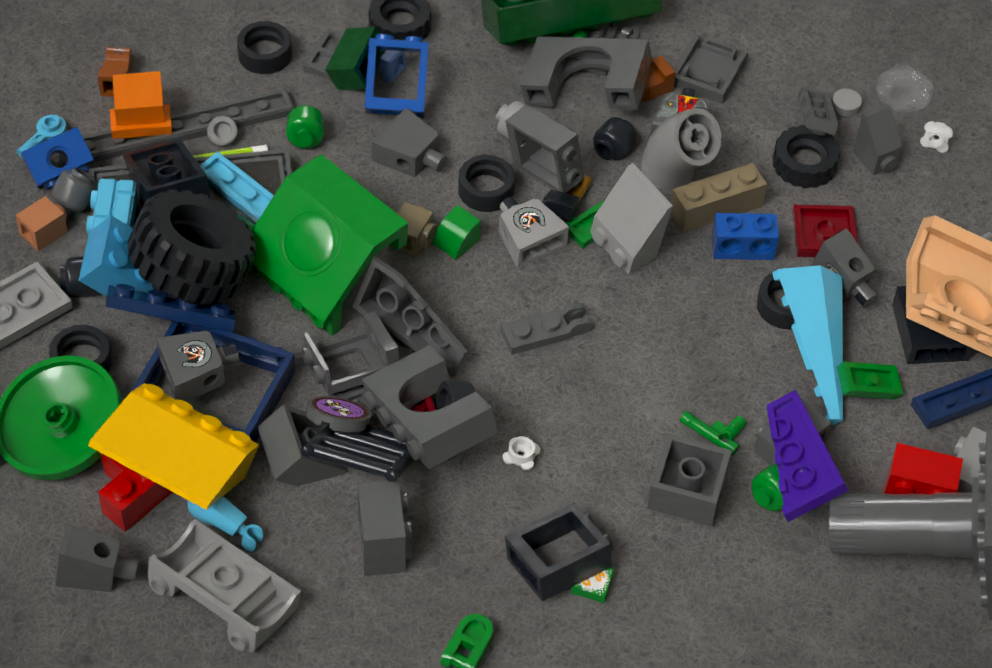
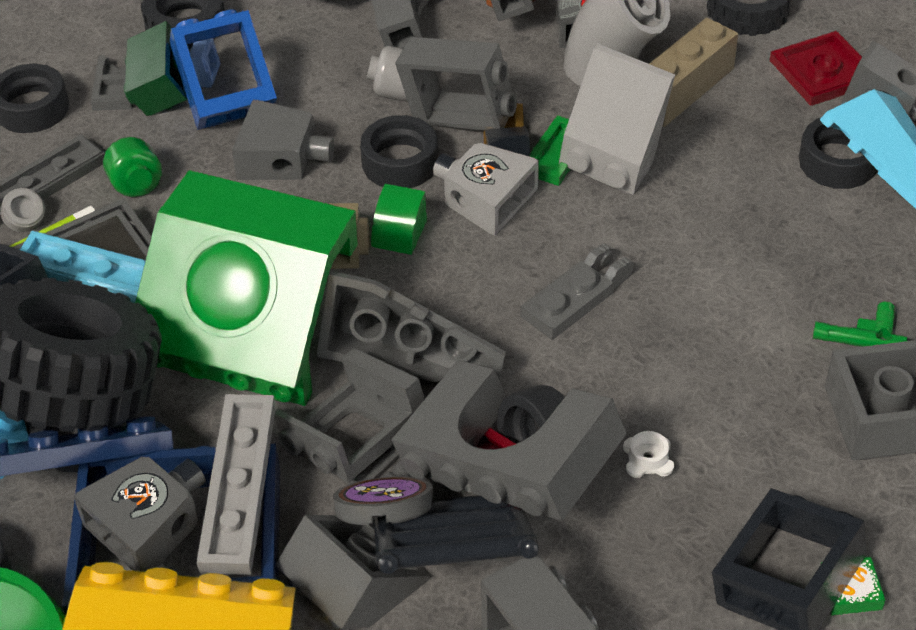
camera: 20 degrees left, 5 degrees down
(256, 368) = (237, 485): none -> light grey plate
(614, 139) = (524, 51): black head -> none
(745, 236) = (745, 100): blue brick -> none

